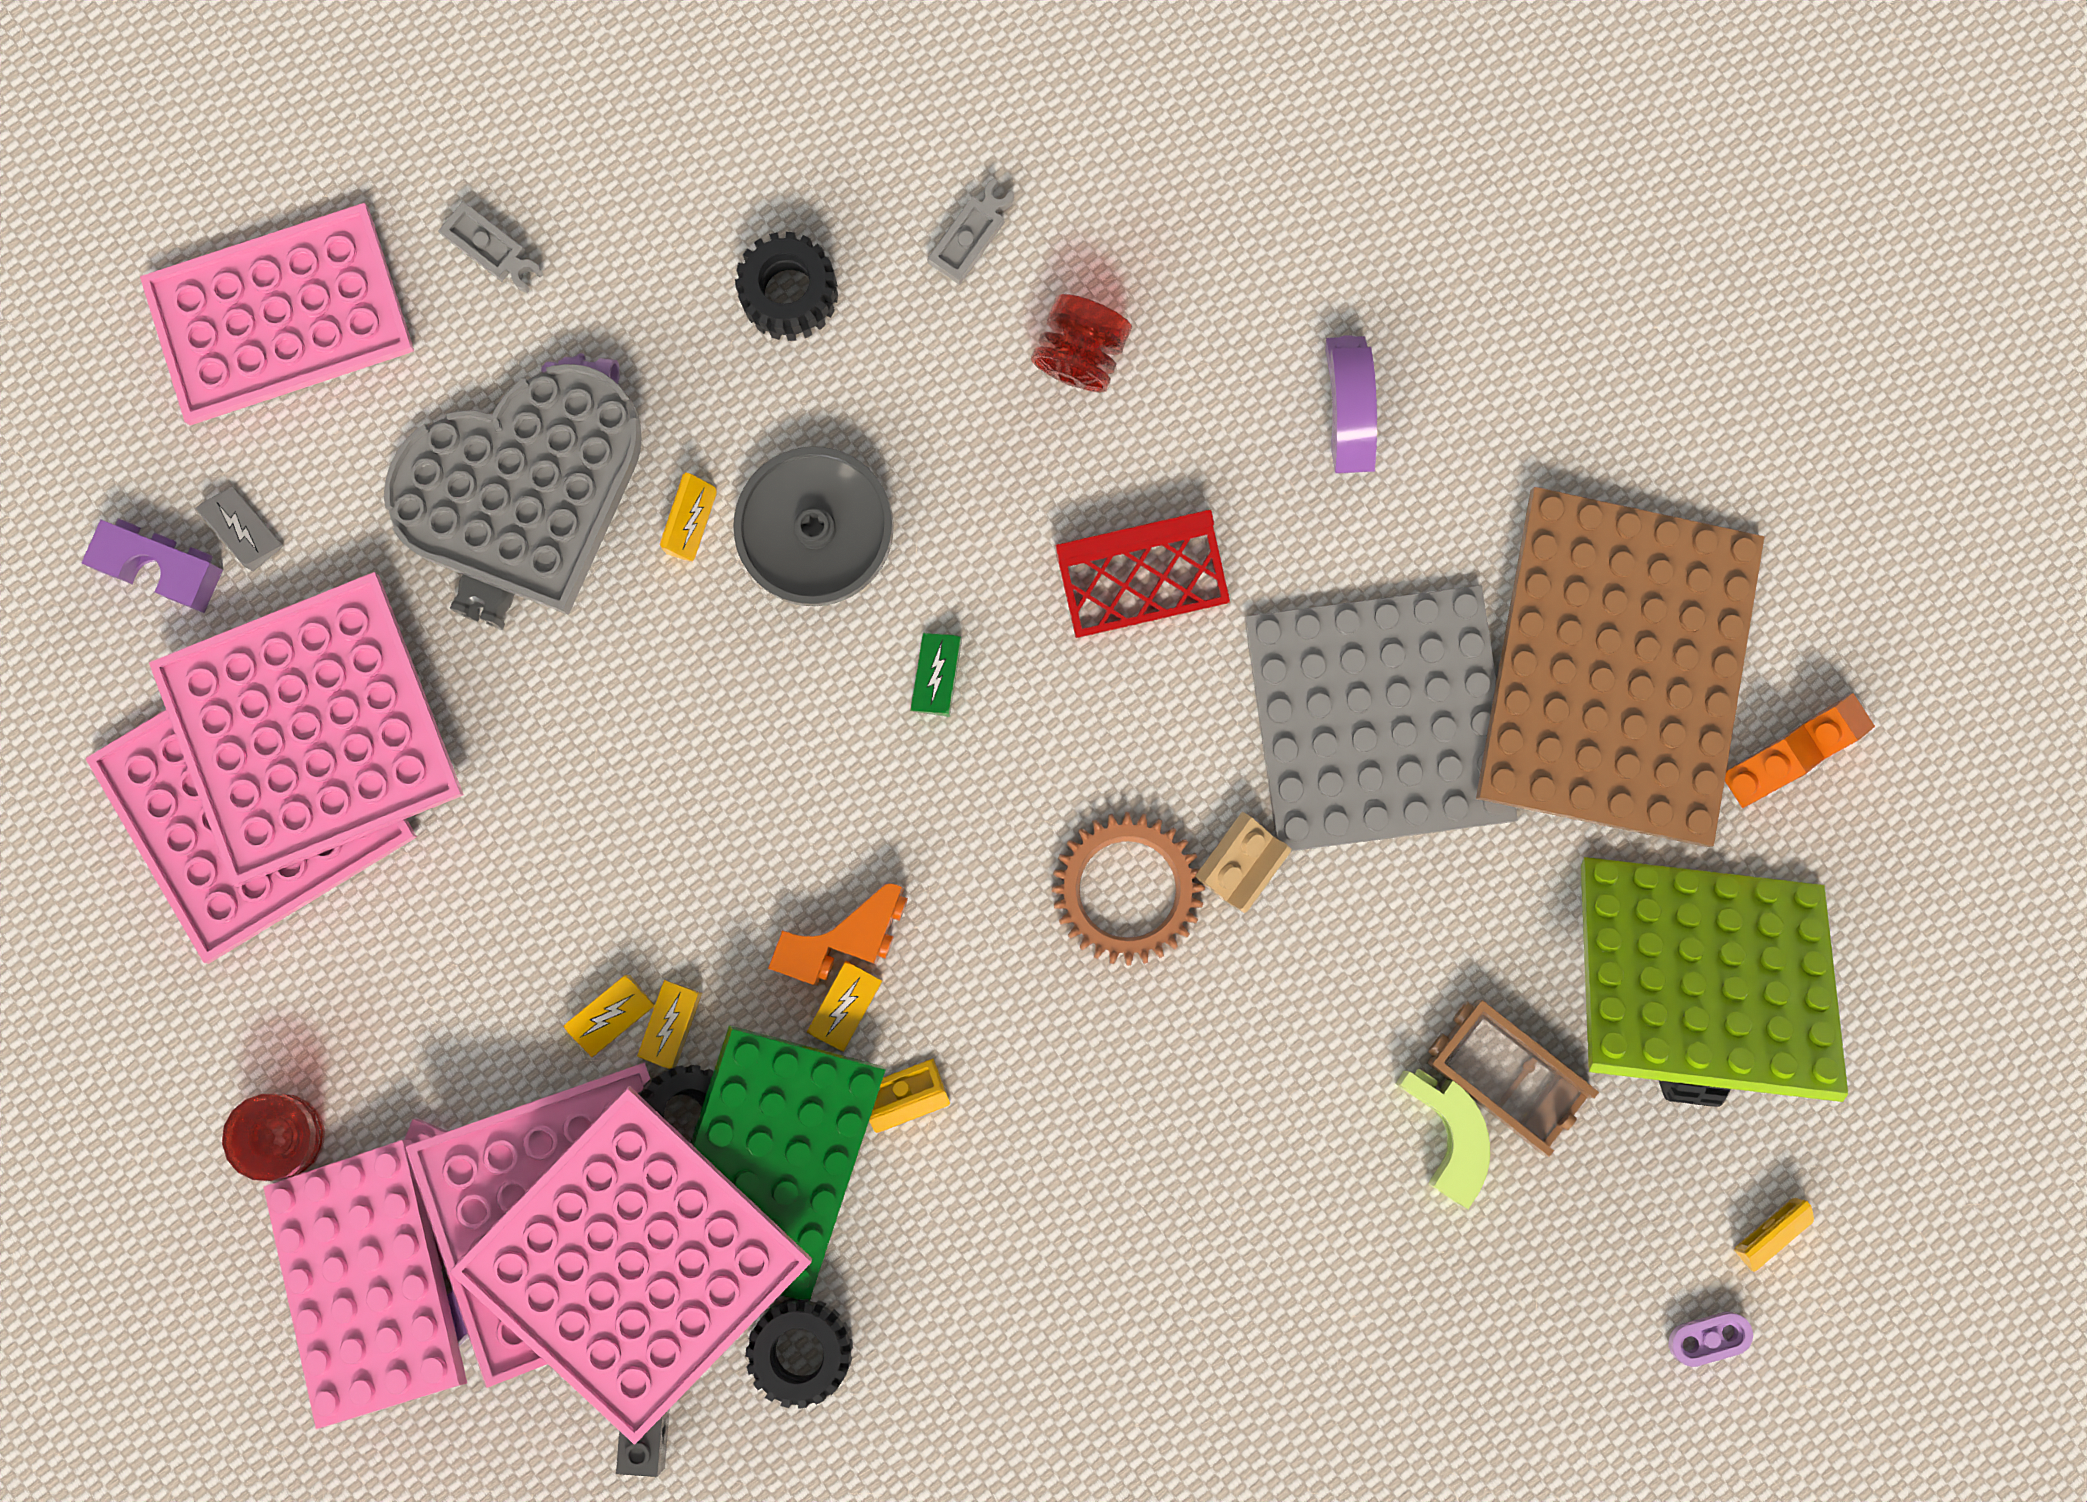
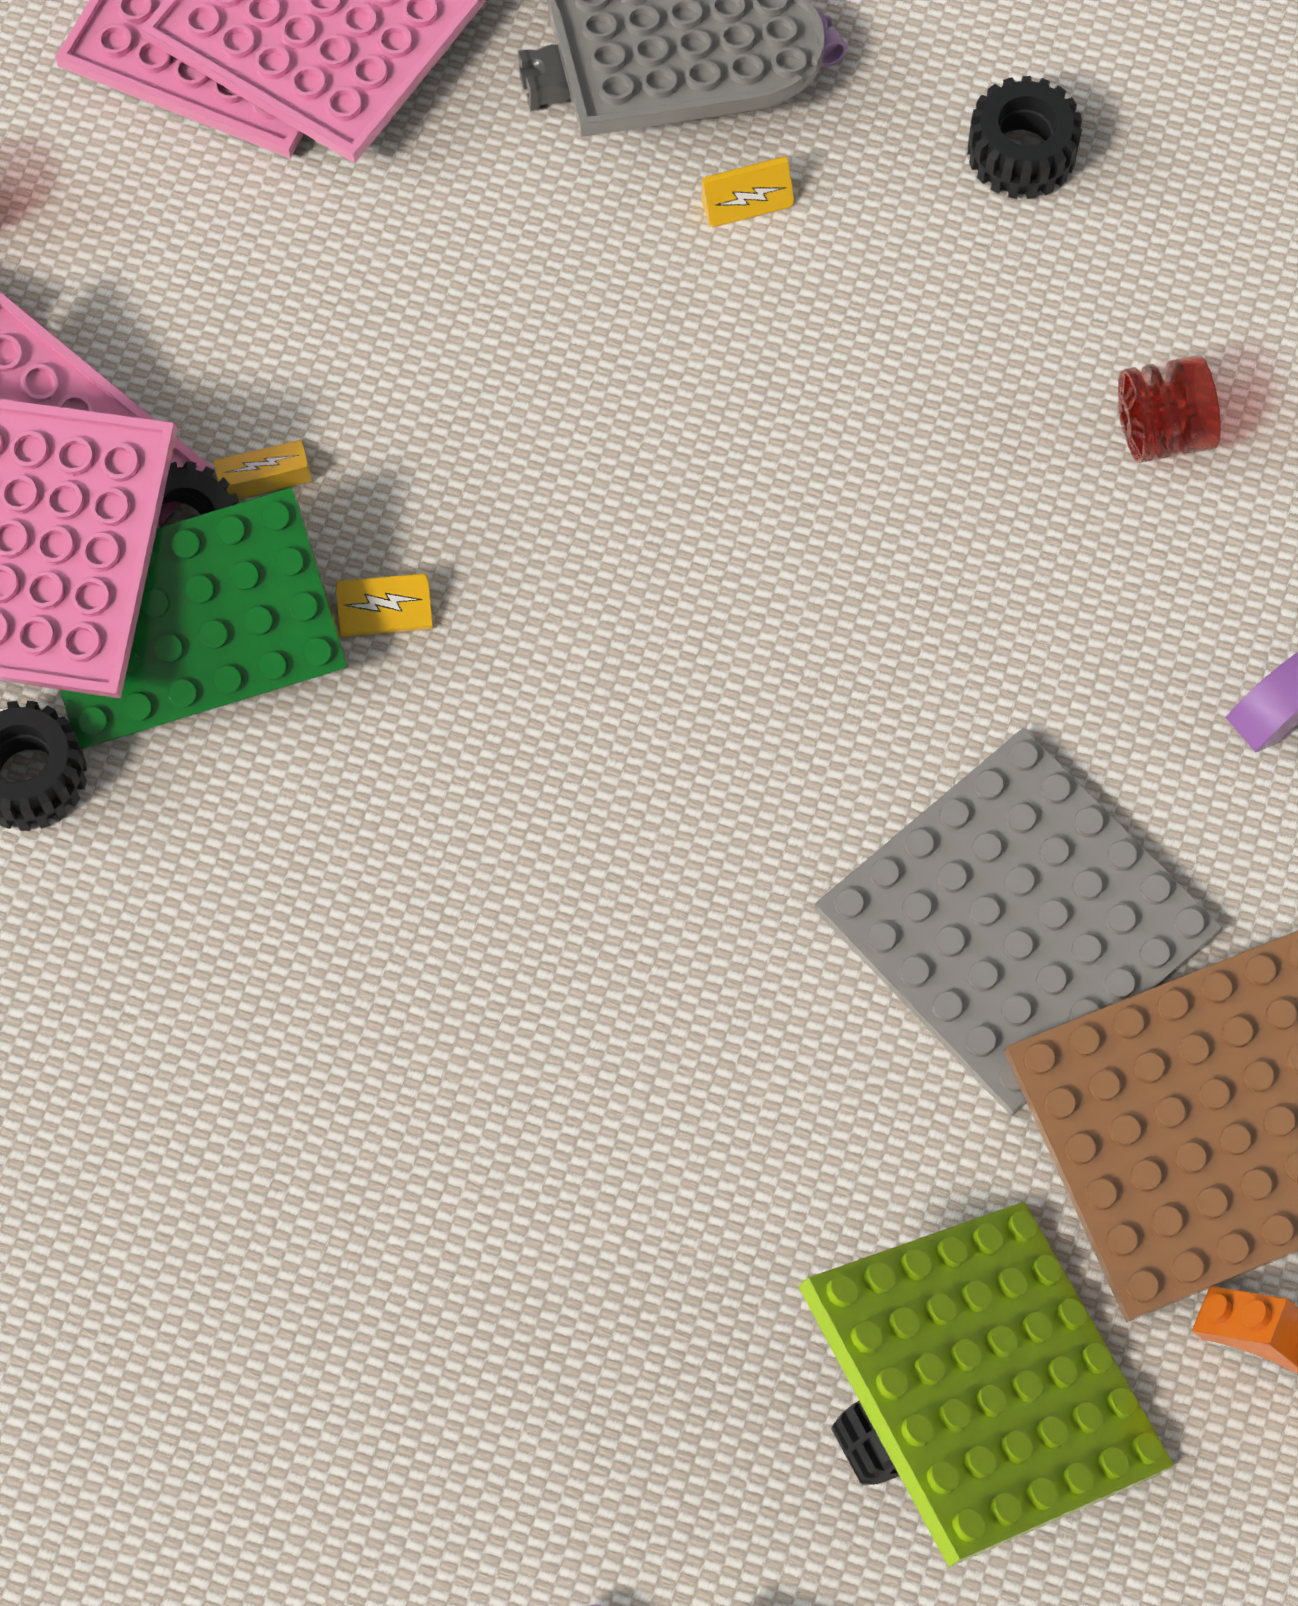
camera: 55 degrees right, 15 degrees down
(609, 1015) = (235, 411): yellow slope -> none
(813, 526) = (818, 294): dark grey dish -> none
(859, 935) = (464, 573): orange arch -> none
(908, 1096) = (334, 716): yellow slope -> none
(936, 674) = (760, 493): green slope -> none
(970, 234) = (1199, 261): light grey plate -> none
(1123, 833) = (667, 728): nougat piece -> none
(1136, 539) = (1018, 576): red fence -> none
(1243, 863) = (779, 871): tan bracket -> none
(1468, 1142) = (643, 1272): yellowish green arch -> none
(1510, 1075) = (748, 1267): clear door -> none

